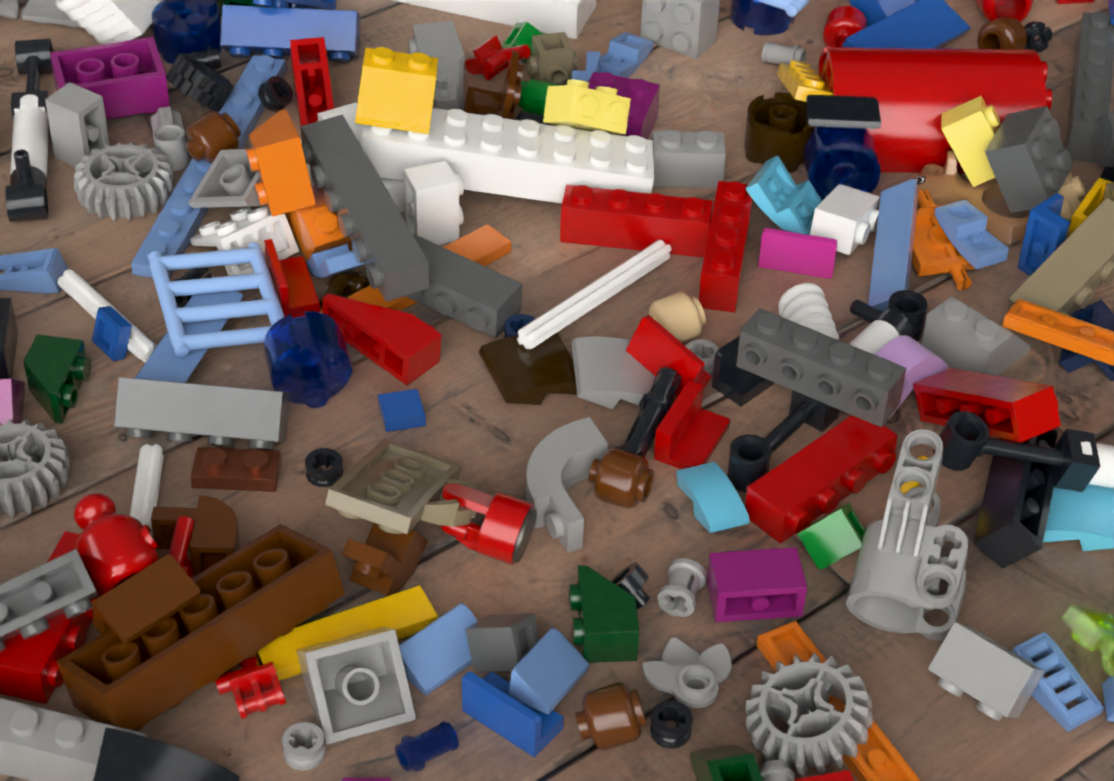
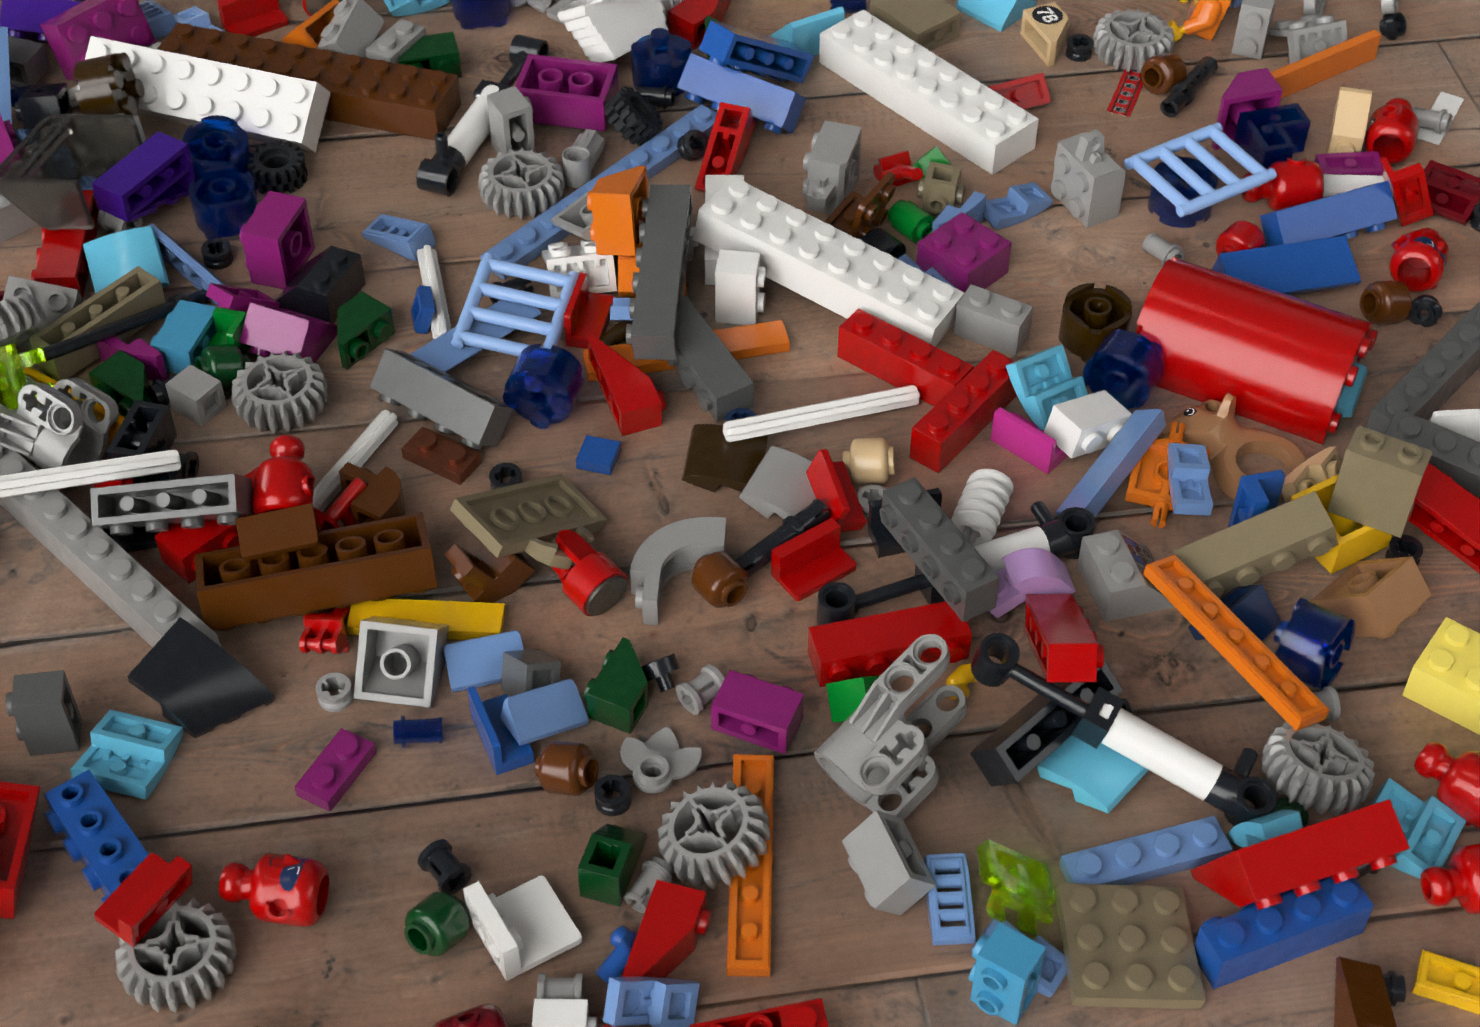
camera: 30 degrees right, 5 degrees up
(210, 135) = (602, 164): reddish brown head -> none
(396, 90) = (748, 178): yellow slope -> none
(587, 108) = (915, 247): light yellow brick -> none
(713, 497) = (786, 625): medium azure slope -> none
(801, 80) = (1135, 287): yellow plate -> none
(842, 111) = (1139, 324): black slope -> none
(969, 133) = (1255, 394): light yellow brick -> none
(1028, 158) = (1287, 427): dark grey brick -> none

